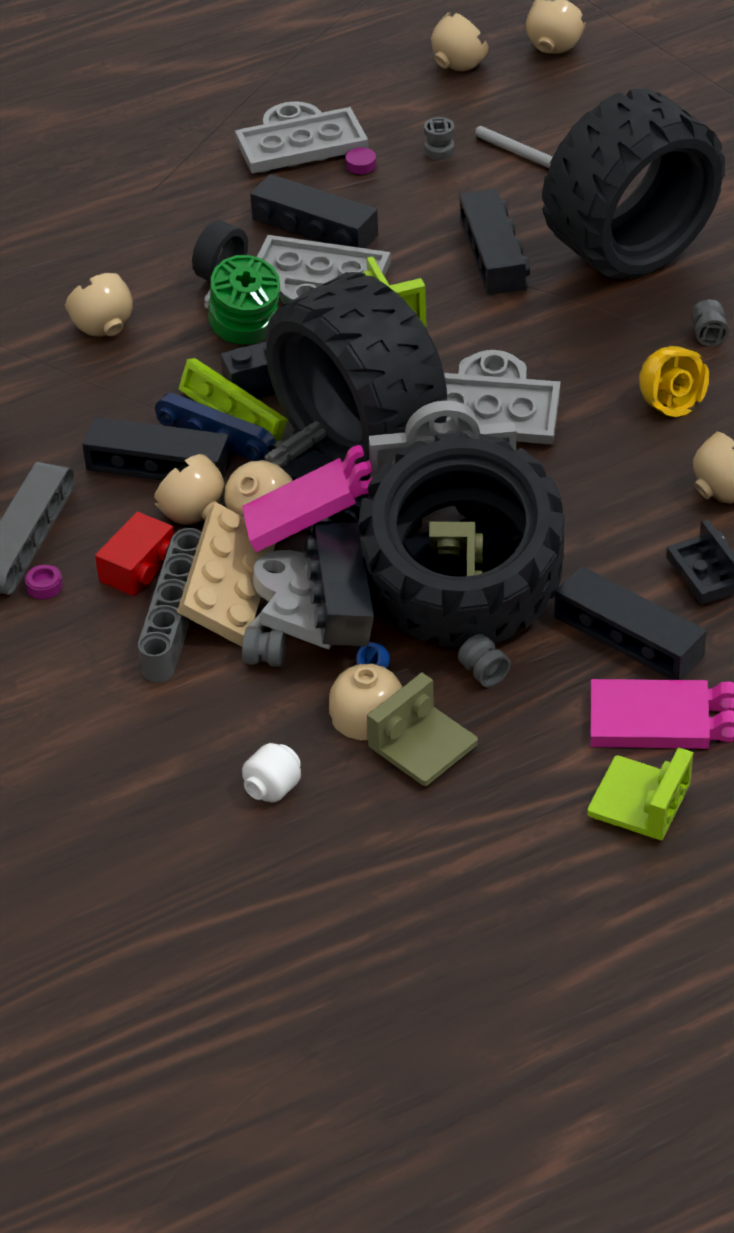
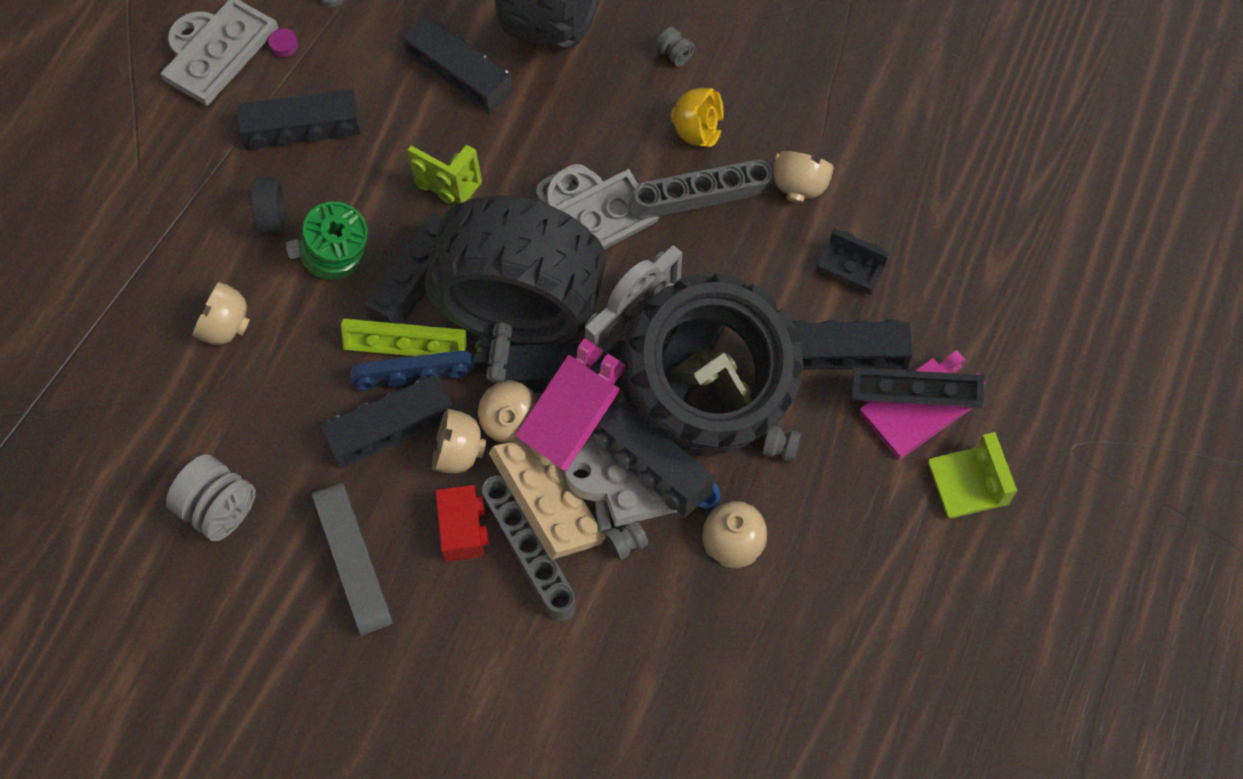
camera: 40 degrees left, 20 degrees up
(44, 581) = (408, 593): magenta tile -> none
(271, 772) = (729, 640): white head -> none
(308, 264) = (351, 170): light grey plate -> none
(416, 734) = (798, 537): olive bracket -> none
(612, 430) = (690, 198): none -> dark grey beam
(654, 678) = (917, 388): none -> black brick

